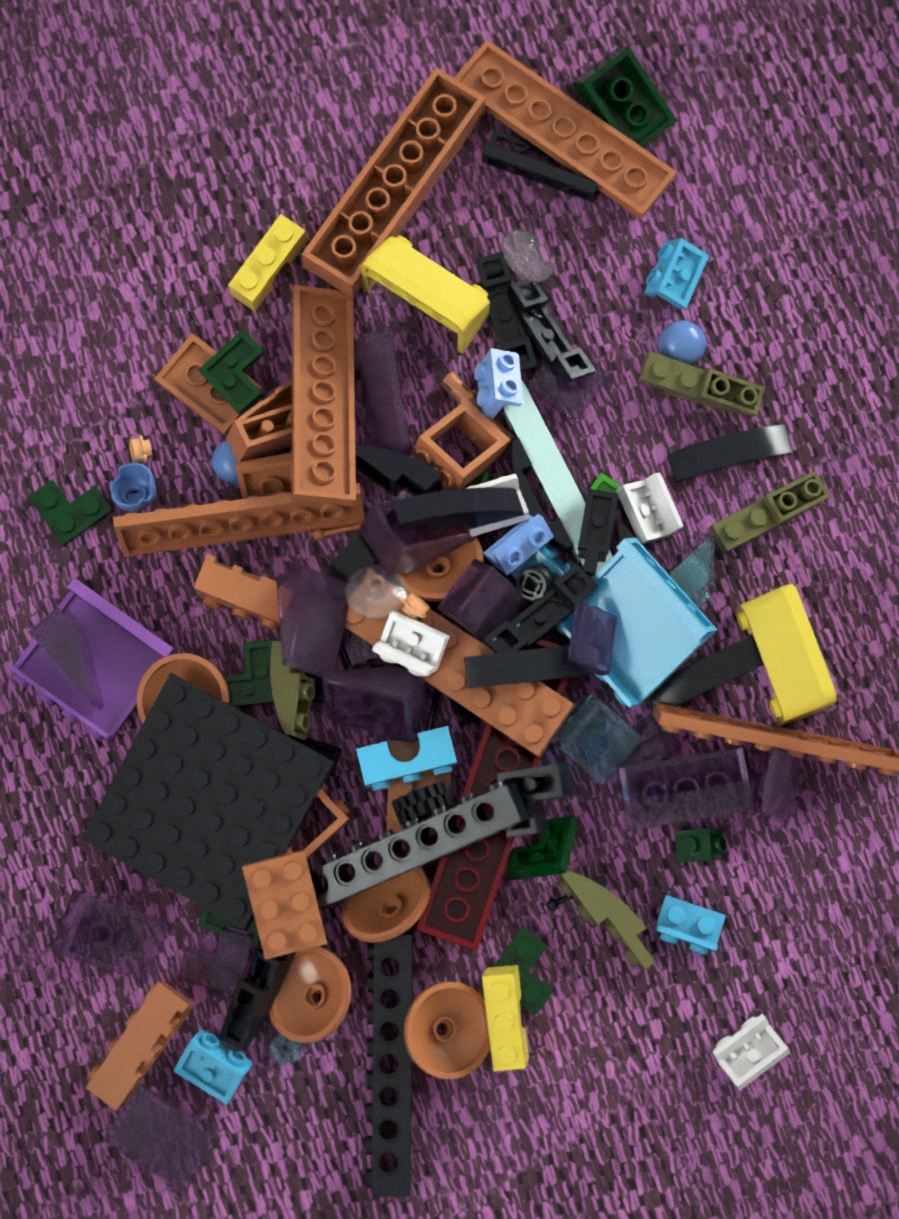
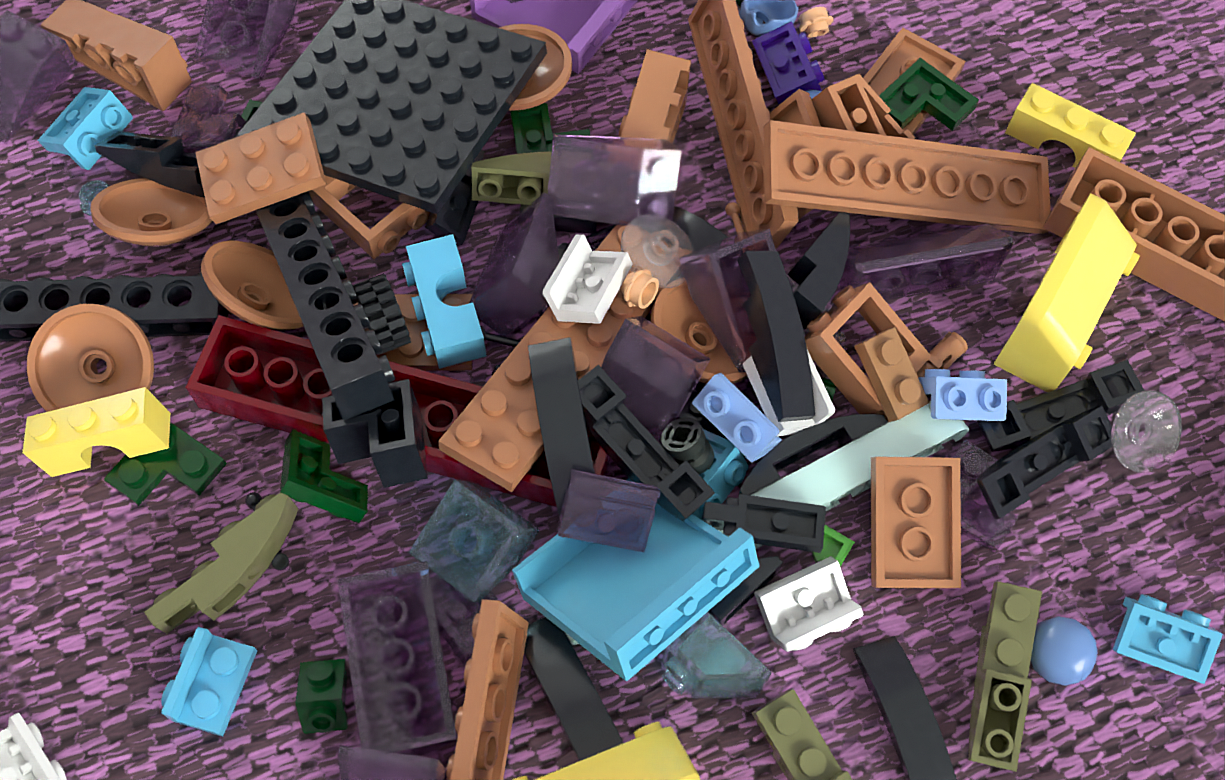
camera: 85 degrees right, 15 degrees down
(185, 476) = (786, 61): none -> dark purple bracket
(487, 429) = (892, 374): none -> medium nougat plate
(594, 428) = (915, 522): none -> nougat plate

